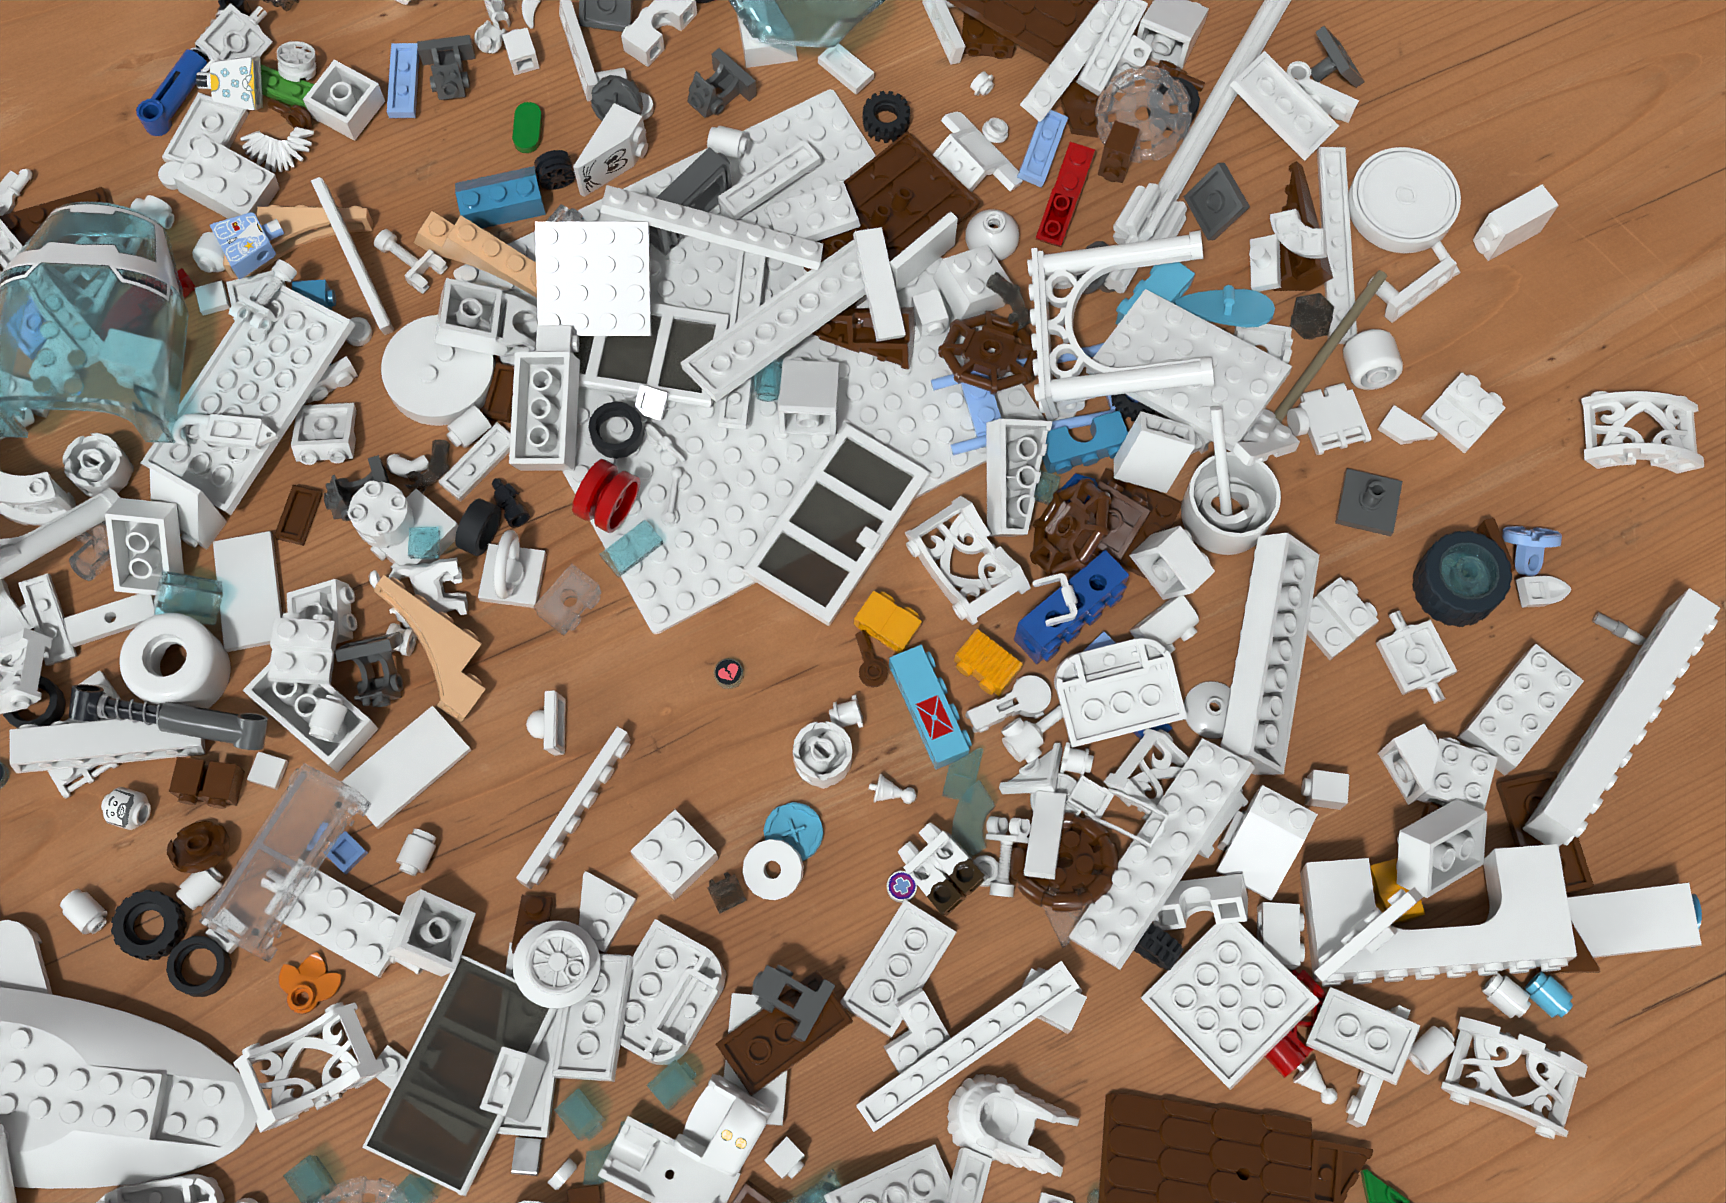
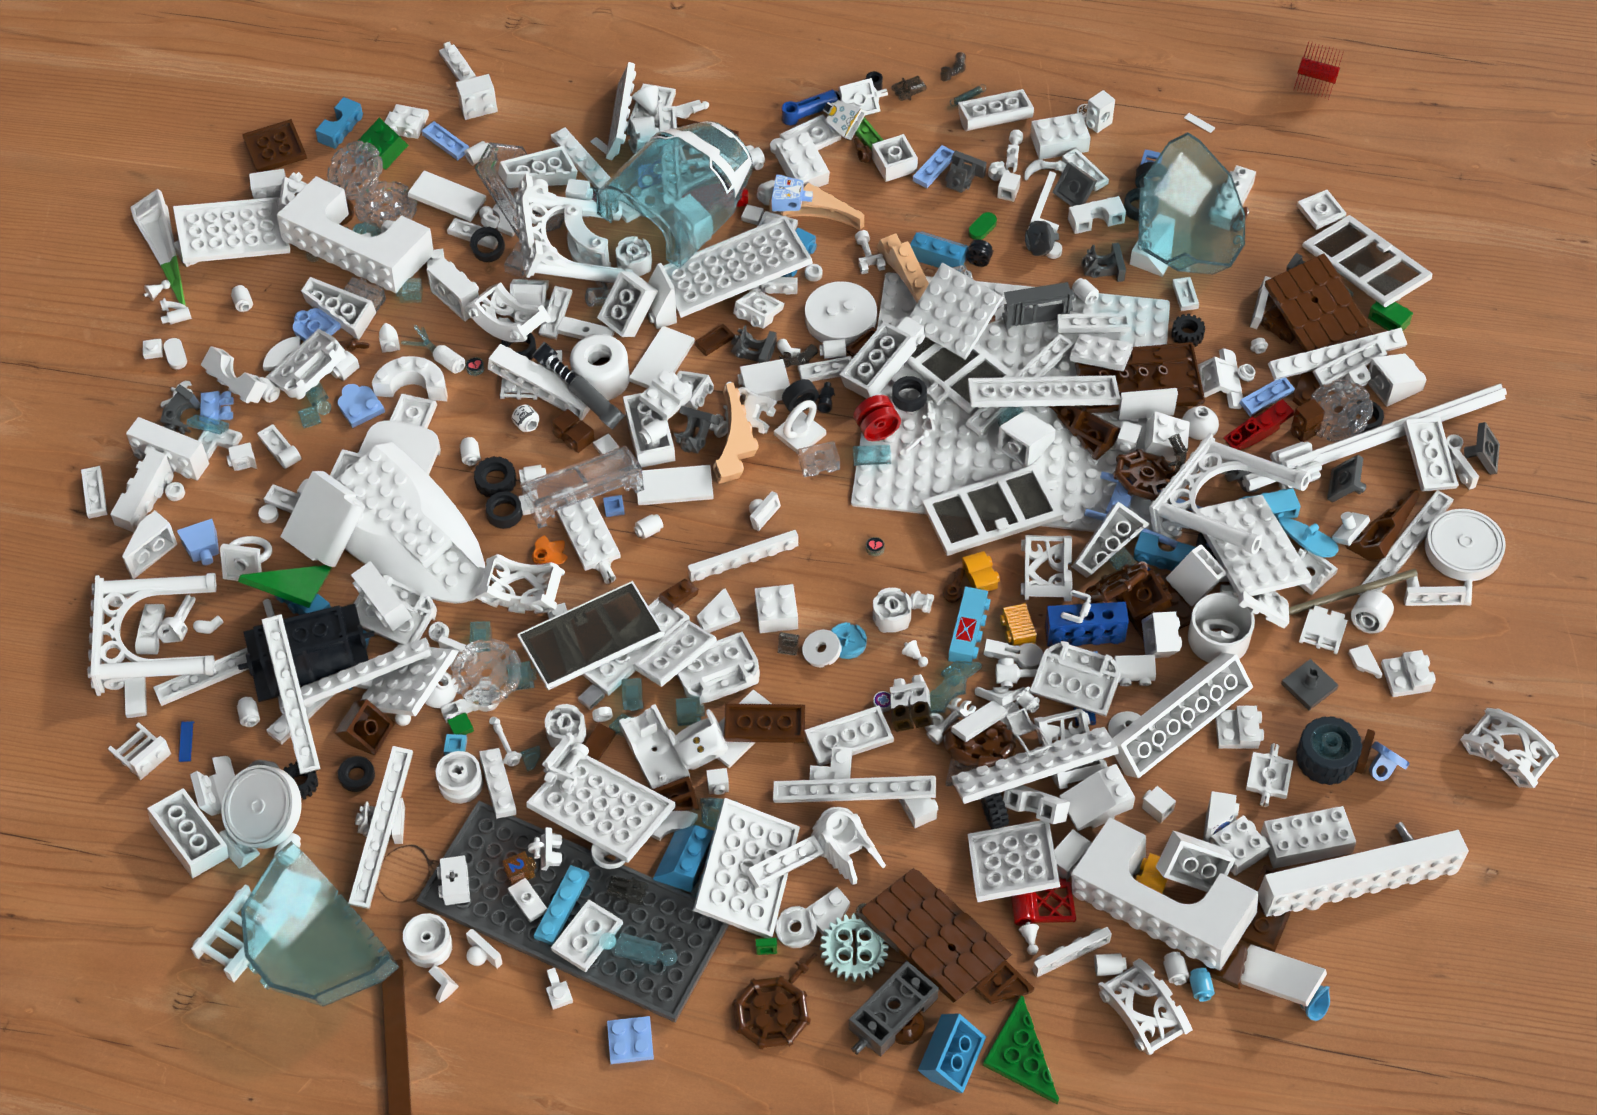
camera: 40 degrees right, 15 degrees down
(188, 596) = (632, 339): clear light blue brick -> none
(198, 847) = (546, 456): reddish brown tile -> none
(226, 430) = (709, 274): white plate -> none
(264, 317) = (769, 232): white bar -> none
(277, 152) = (840, 165): white hair -> none
(296, 62) = (884, 126): white wheel -> none
(352, 256) = (838, 232): white tile -> none
(381, 514) = (754, 357): white brick -> none
(424, 543) = (766, 385): clear light blue plate -> none
(431, 933) = (626, 561): white brick -> none
(482, 319) = (880, 297): white brick -> none
(513, 1084) = (611, 654): white panel -> none
(556, 964) = (675, 615): white wheel -> none
(611, 150) = (1016, 259): white slope -> none
(712, 227) = (1037, 321): white plate -> none
(769, 985) = (783, 712): dark grey tile -> none
(879, 284) = (1107, 401): white tile -> none
(1176, 71) = (1378, 398): reddish brown plate -> none
(1221, 461) = (1229, 596): white bar -> none
(1298, 237) = (1380, 523): white tile -> none
(1298, 421) = (1301, 617): white tile -> none
(1312, 316) = (1354, 569): clear smoke brick -> none
(1363, 1036) = (1073, 925): white plate -> none
(1369, 932) = (1109, 858): white plate -> none
(1515, 222) = (1522, 593): white brick -> none
(1541, 590) = (1375, 790): white plate -> none

